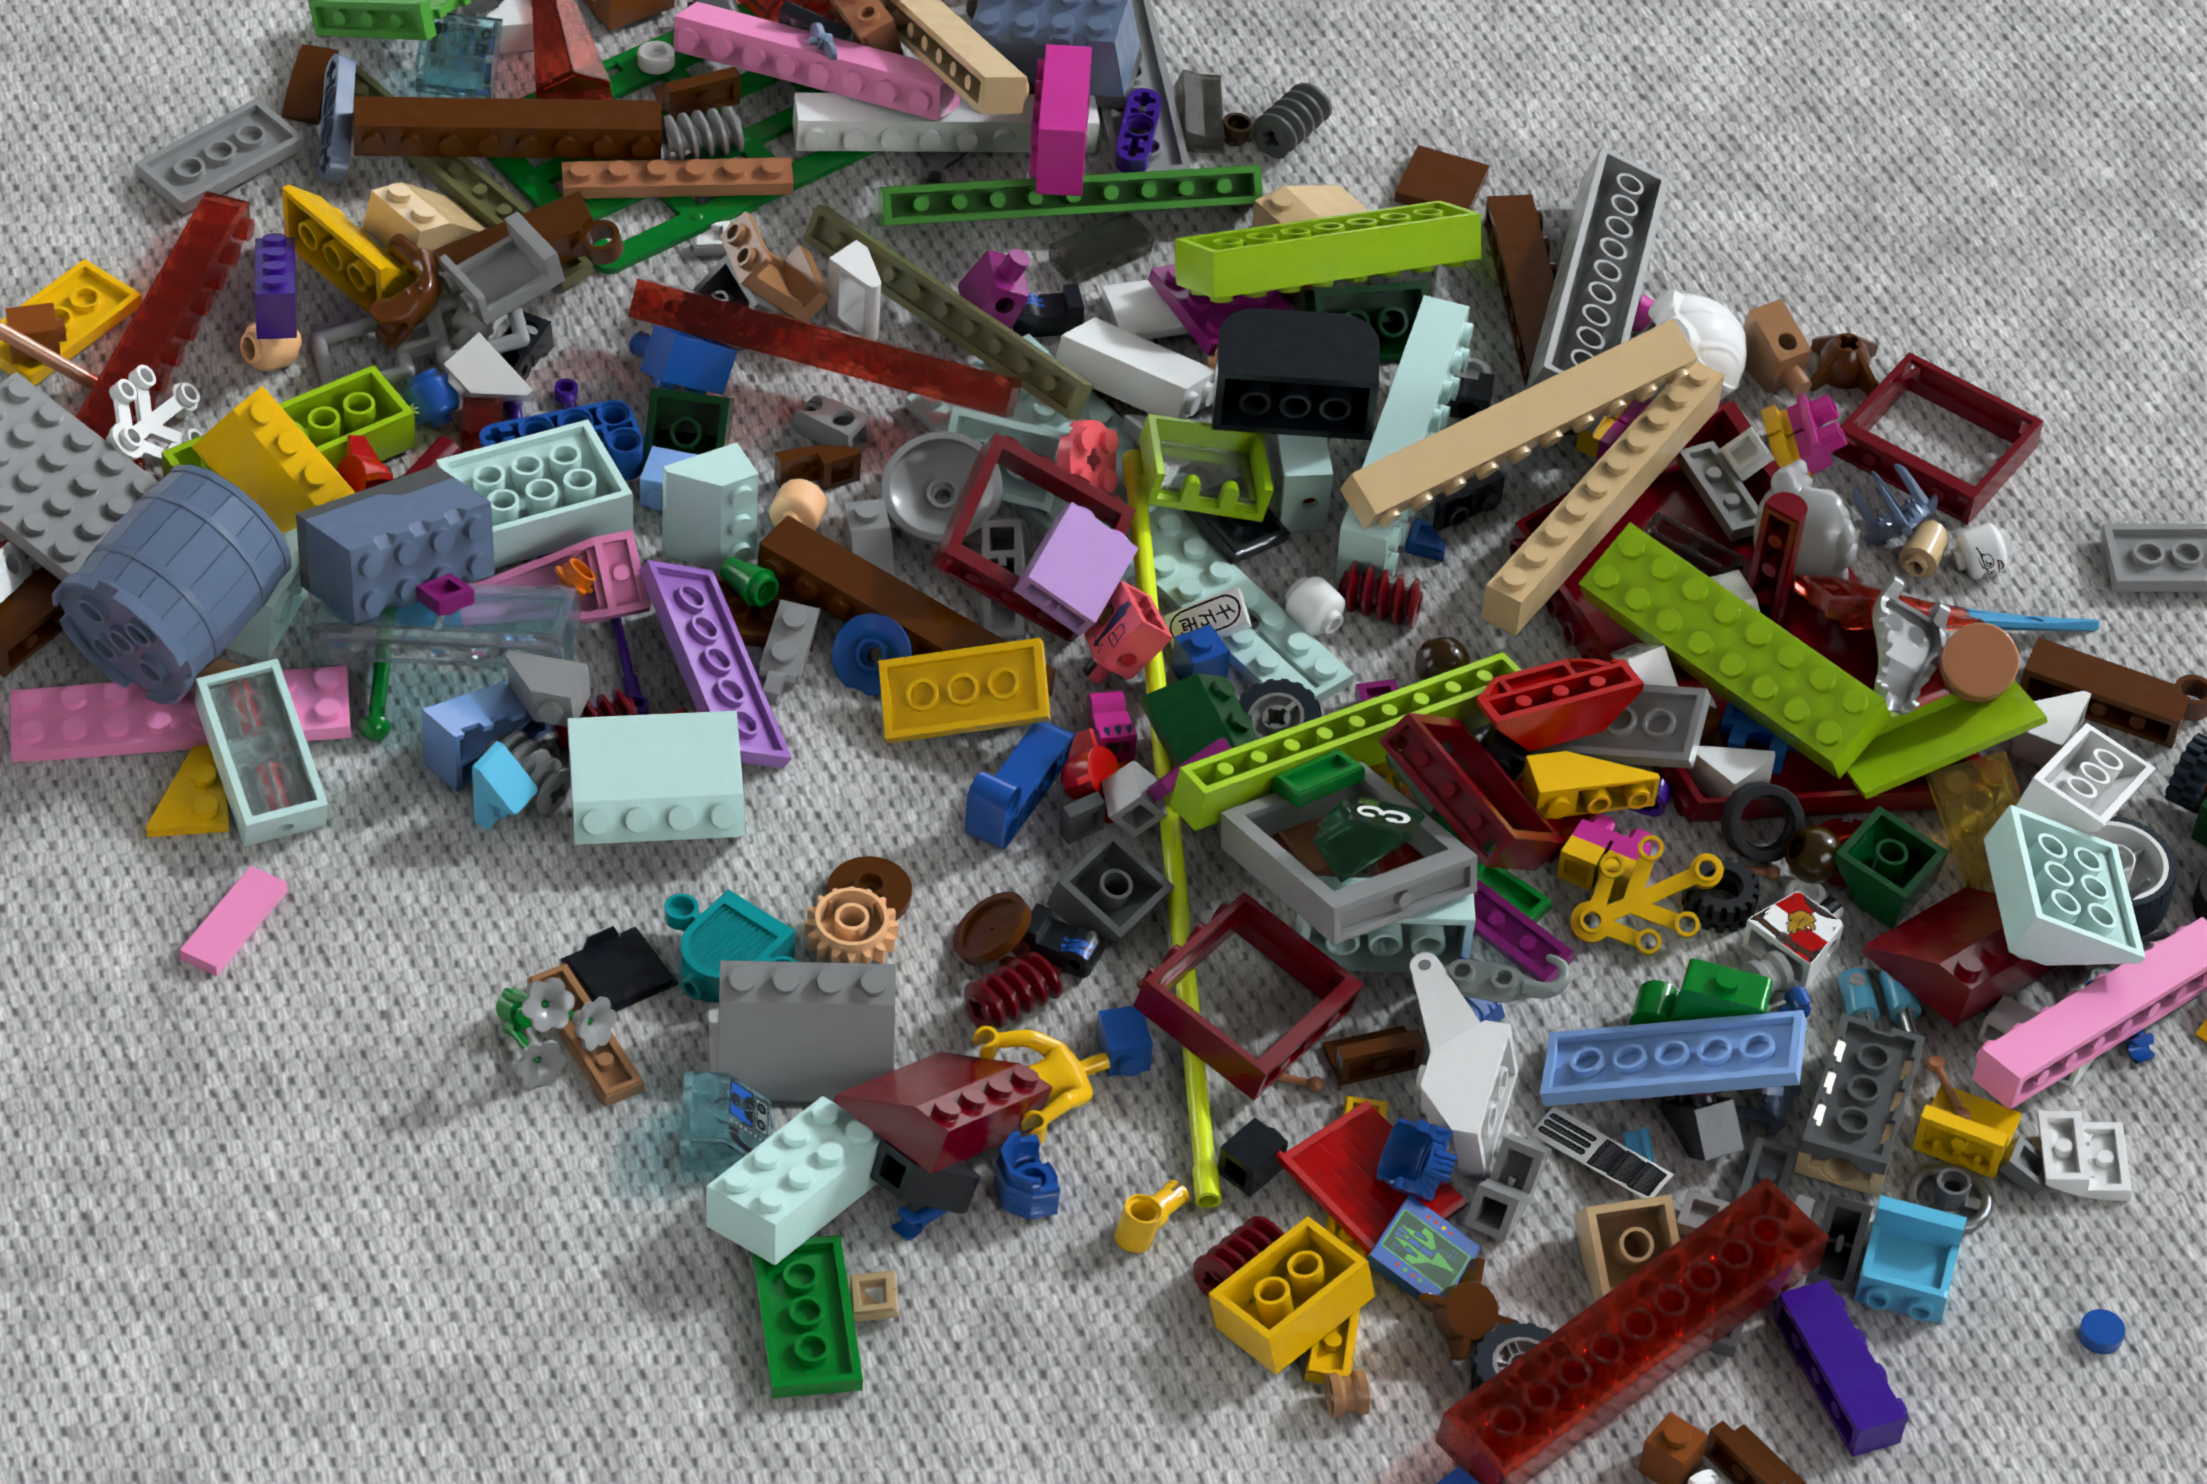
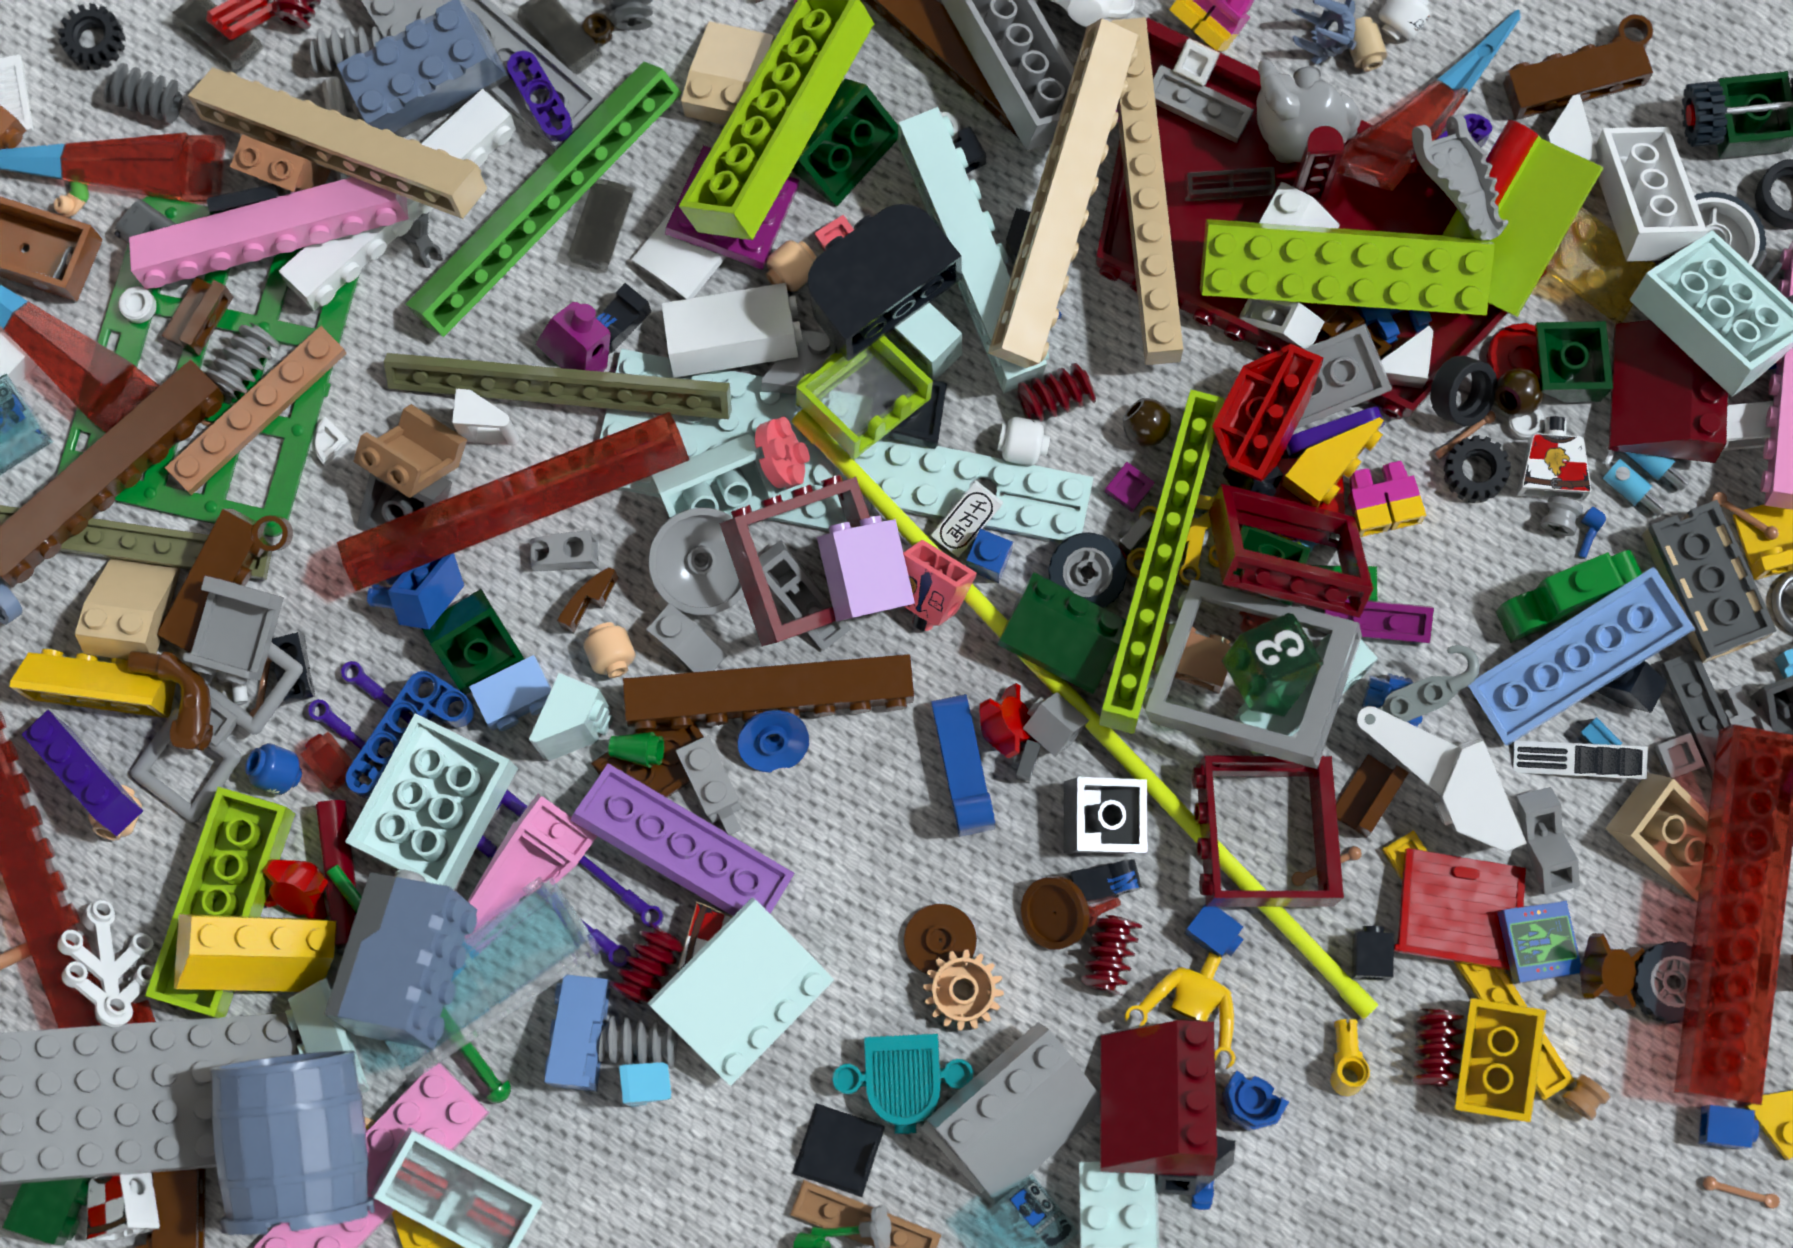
camera: 30 degrees left, 30 degrees up
(445, 594) = (475, 975): magenta plate -> none
(485, 373) = (299, 722): white slope -> none
(548, 686) = (610, 983): light grey slope -> none
(576, 575) = (532, 862): orange plate -> none
(822, 40) = (268, 217): sand blue piece -> none
(964, 690) = (869, 728): yellow plate -> none
(1060, 120) = (503, 155): dark pink brick -> none
(1112, 722) = (976, 662): dark pink leg -> none
(1167, 783) = (1089, 686): magenta tile -> none
(1318, 778) = (1183, 626): green tile -> none
(1416, 1159) = (1490, 882): blue hair -> none
(1640, 900) = (1440, 525): yellow plant -> none
(1978, 662) = (1524, 154): nougat head -> none

